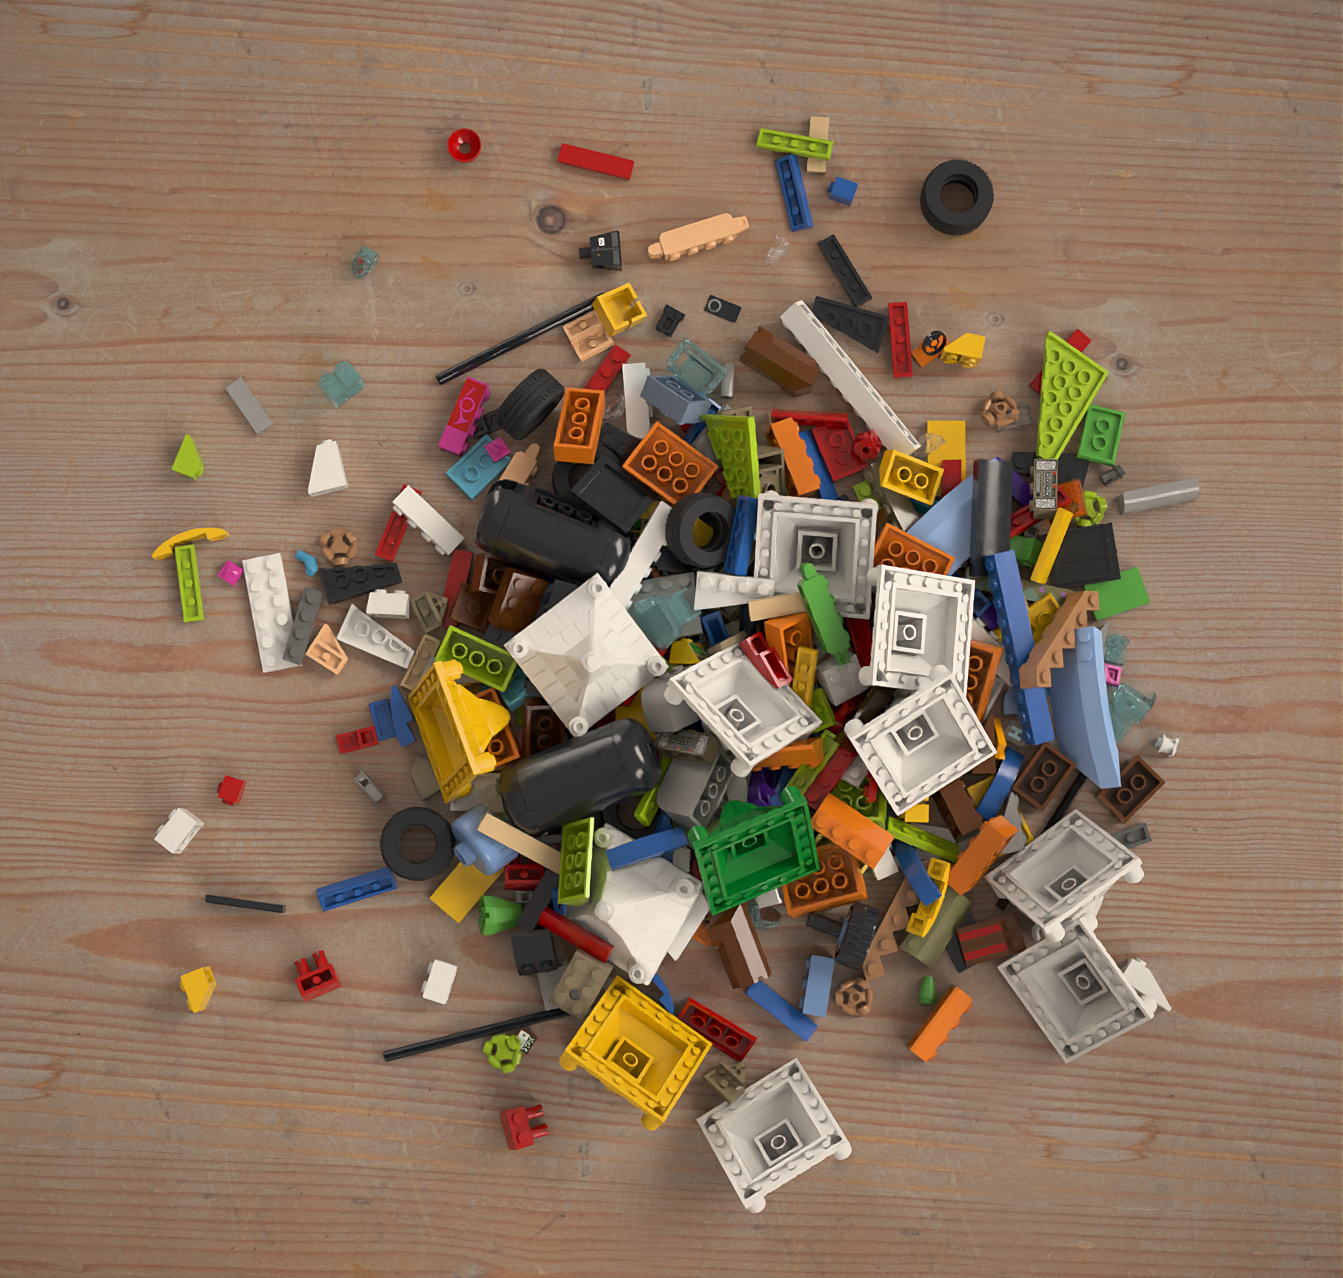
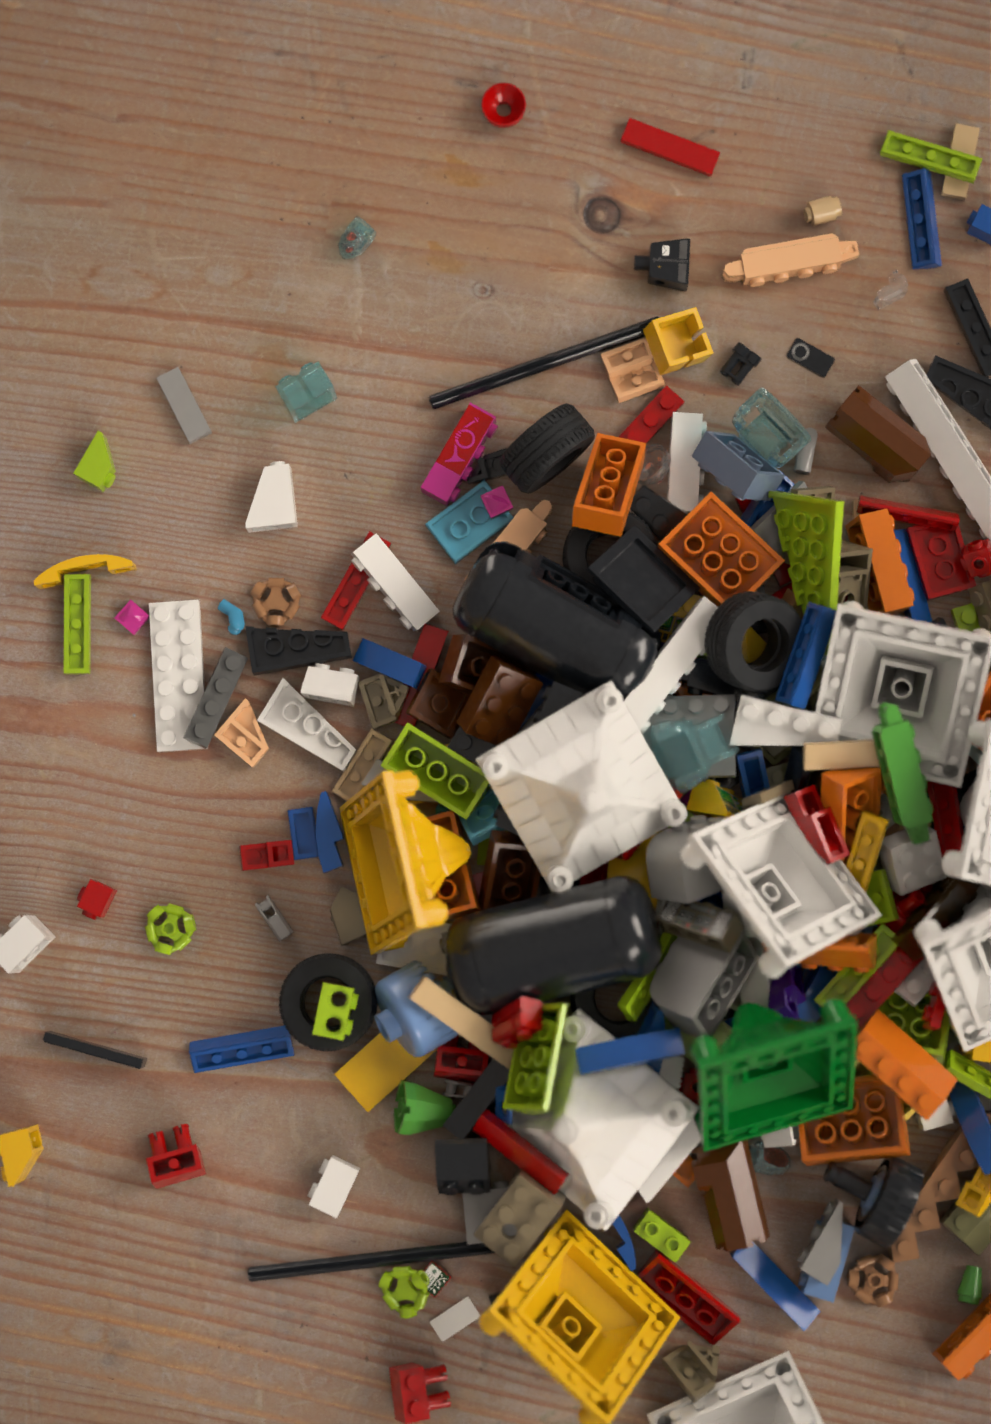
camera: 15 degrees right, 0 degrees up
(290, 804) = (169, 928): none -> lime piece
(418, 848) = (328, 1009): none -> lime brick
(431, 582) = (389, 663): none -> blue slope
(544, 1069) = (455, 1319): none -> white sticker
(559, 837) = (517, 1022): none -> red brick
(691, 984) = (661, 1234): none -> lime brick
(717, 195) = (822, 210): none -> tan brick
(813, 978) = (824, 1251): none -> light grey slope

